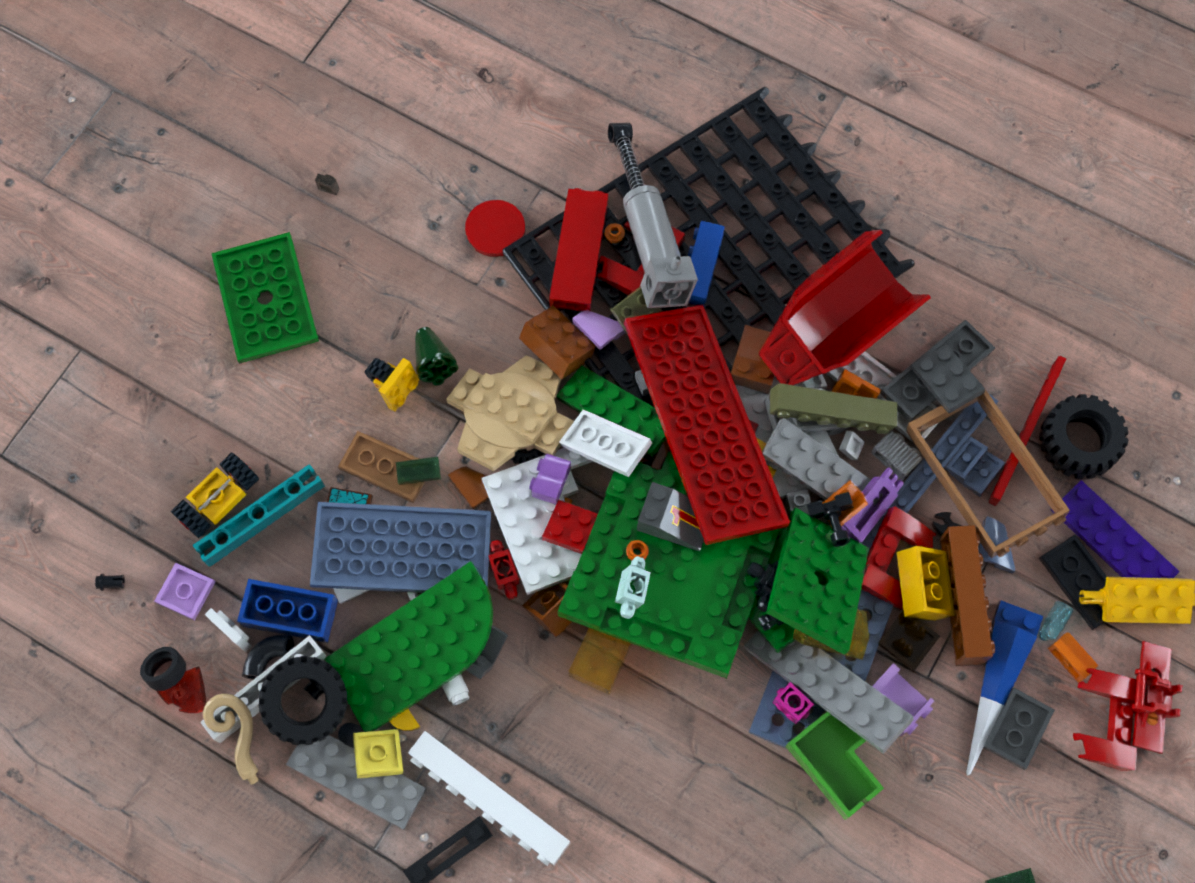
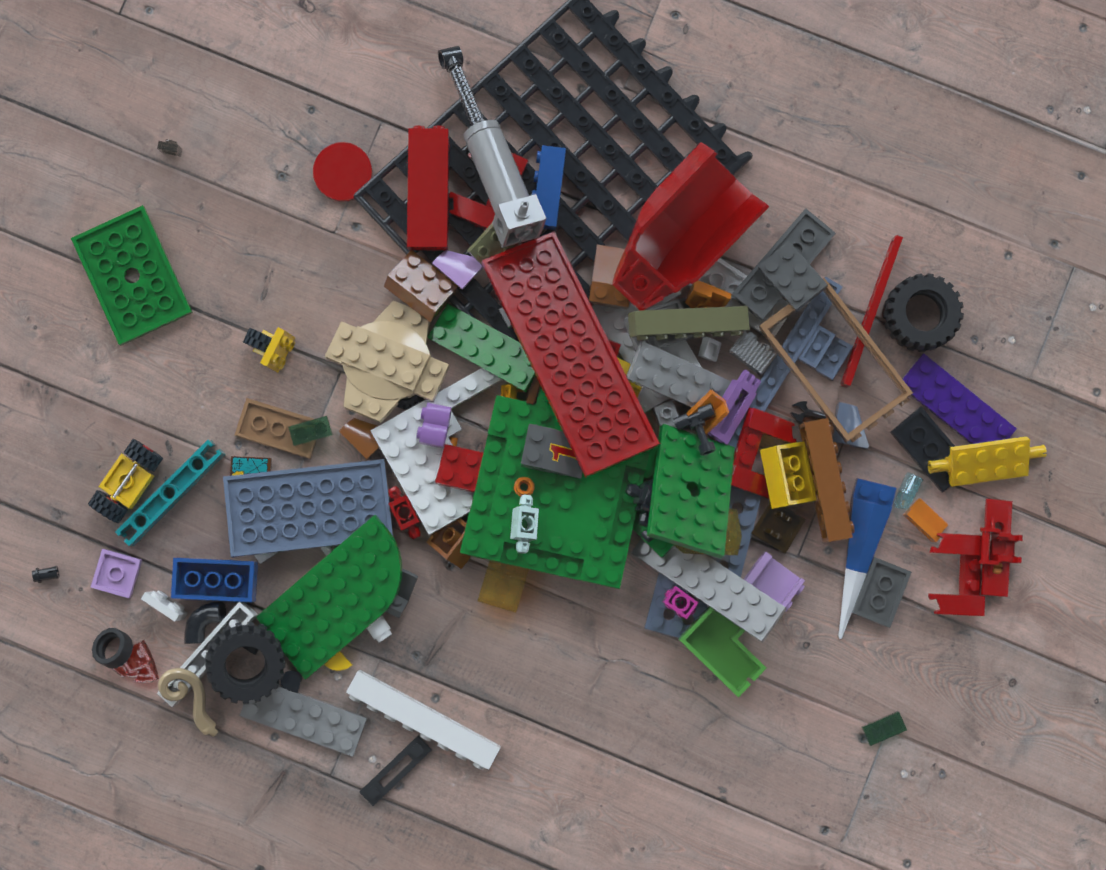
camera: 10 degrees left, 15 degrees up
(377, 753) = (319, 695): light yellow tile -> none
(433, 358) = (304, 316): dark green cone -> none
(605, 443) = (481, 385): white plate -> none
(614, 238) = (459, 172): orange plate -> none

